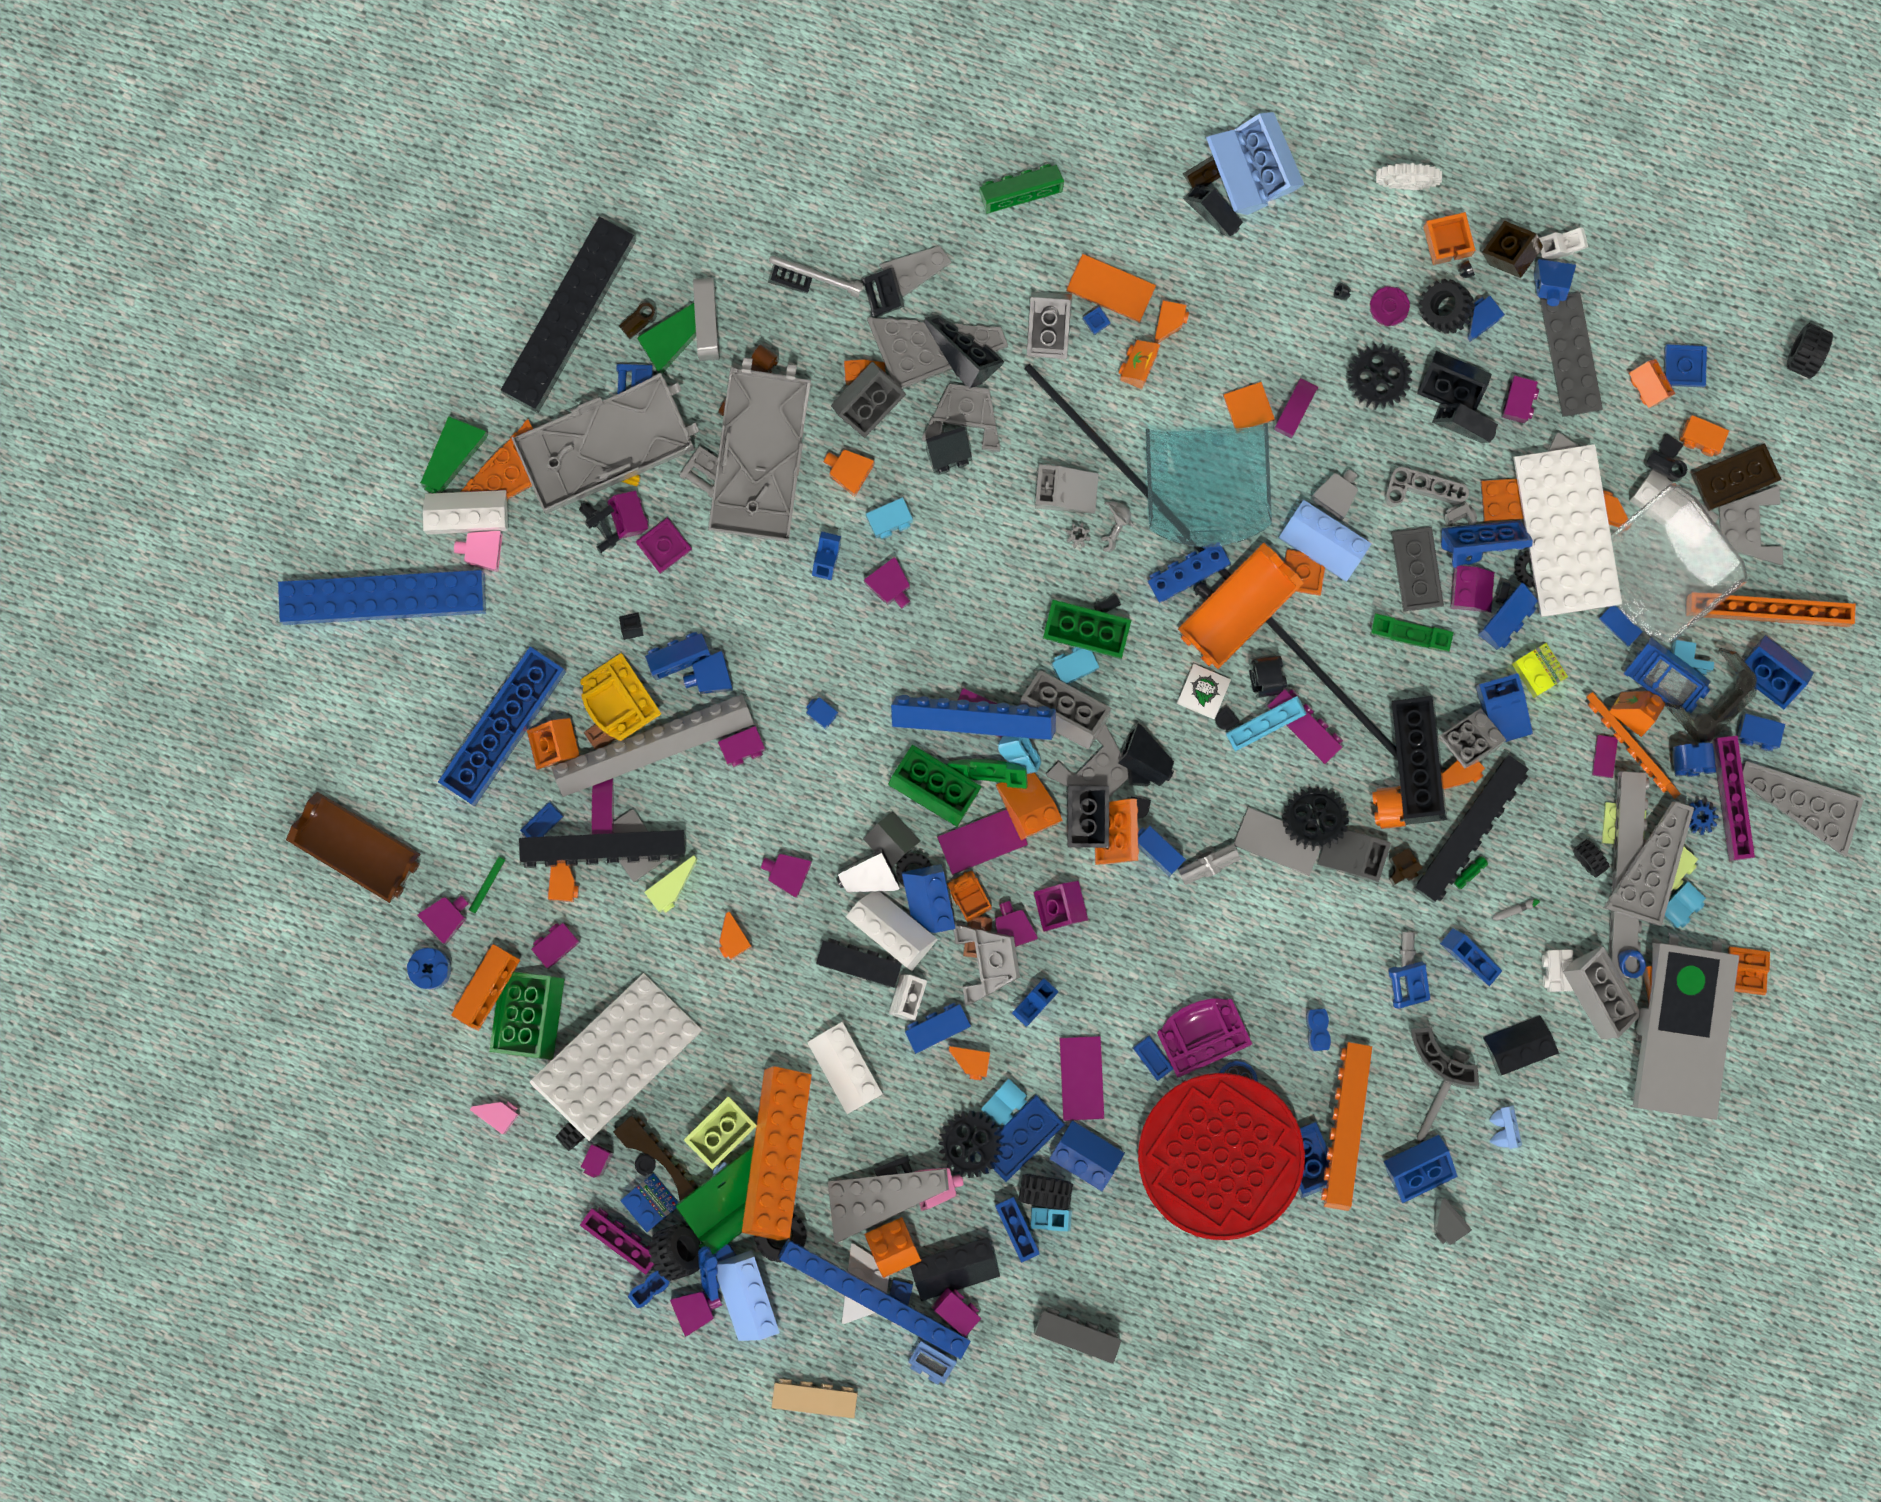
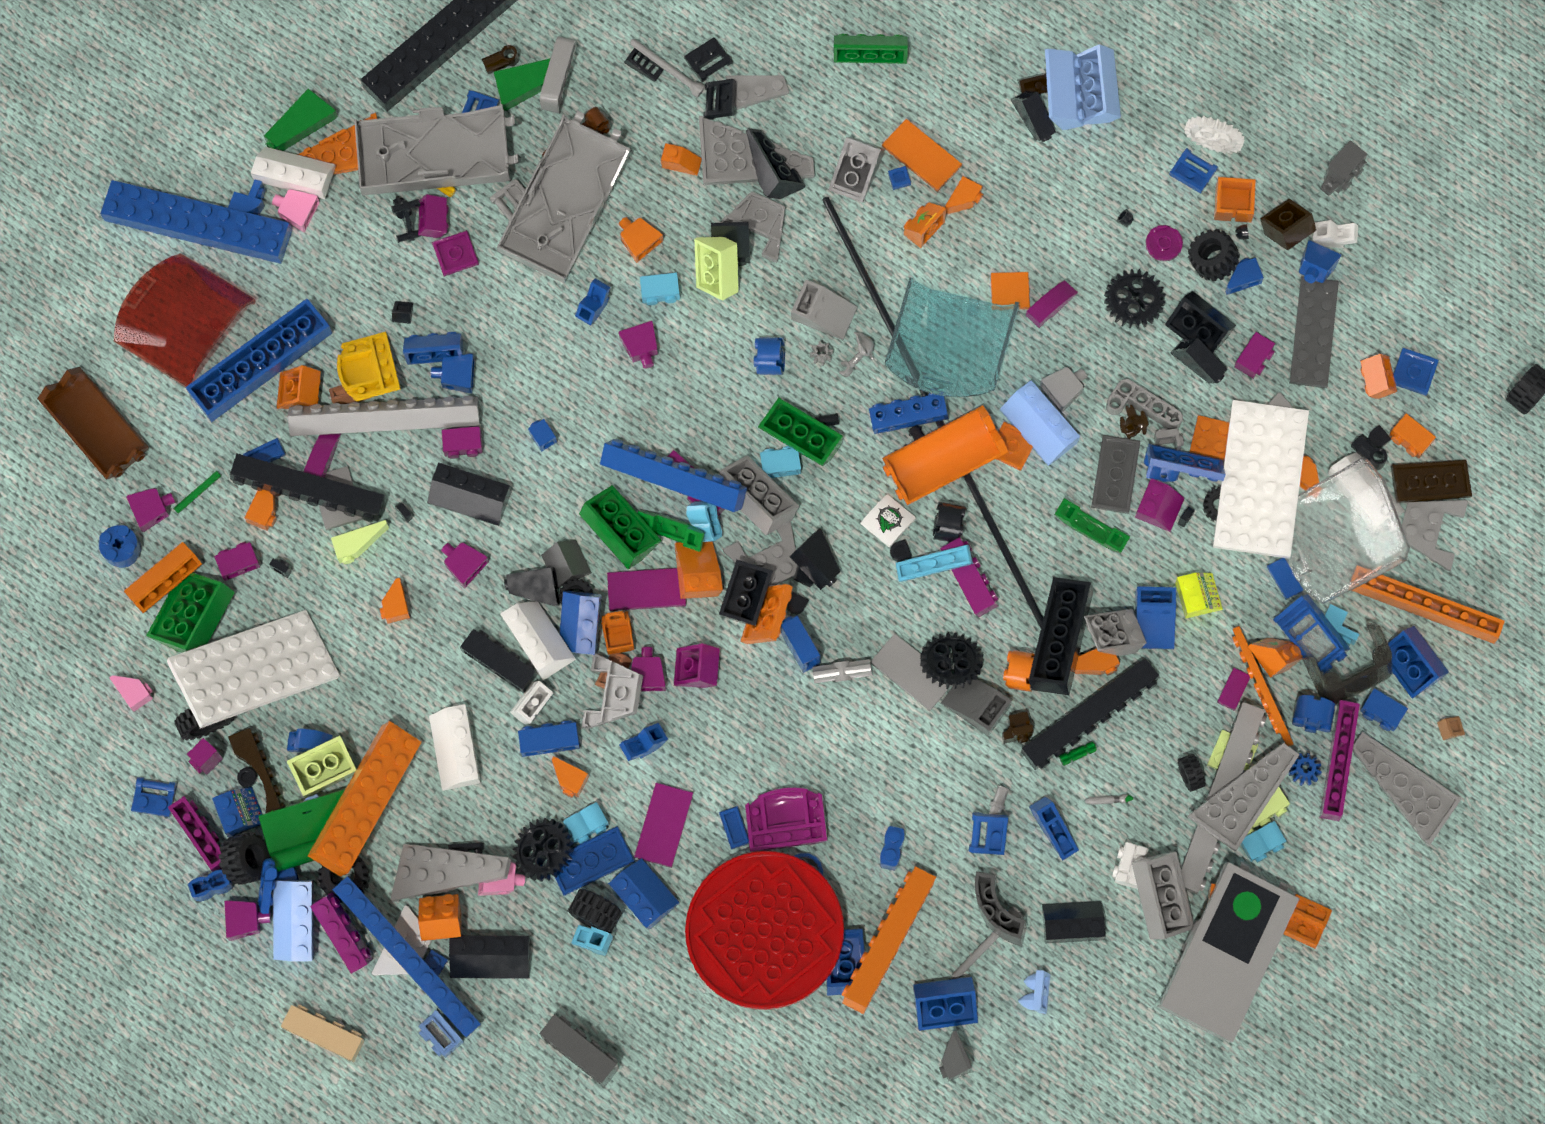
camera: 20 degrees right, 10 degrees down
(399, 704) = (177, 316): none -> clear red windscreen
(432, 560) = (249, 203): none -> blue brick
(558, 1222) = (152, 803): none -> blue plate
(602, 937) = (281, 567): none -> black plate
(694, 1109) = (306, 739): none -> blue brick
(707, 838) = (403, 511): none -> black tile
(768, 800) = (469, 494): none -> slope
(800, 1294) = (342, 932): none -> magenta brick
(850, 247) = (705, 54): none -> black plate
(868, 399) = (674, 181): dark grey brick -> none
(943, 479) = (716, 266): none -> yellowish green slope
(956, 1312) = (477, 995): magenta brick -> none
(1017, 1229) = (558, 938): blue brick -> none
(1028, 556) = (770, 356): none -> blue brick
(1395, 224) = (1191, 175): none -> blue plate
(1420, 511) = (1134, 423): none -> dark brown piece
(1509, 617) = (1184, 538): blue slope -> none
(1550, 171) = (1343, 168): none -> dark grey hinge
(1623, 956) = (1203, 868): blue piece -> none
(1831, 728) = (1450, 728): none -> medium nougat slope

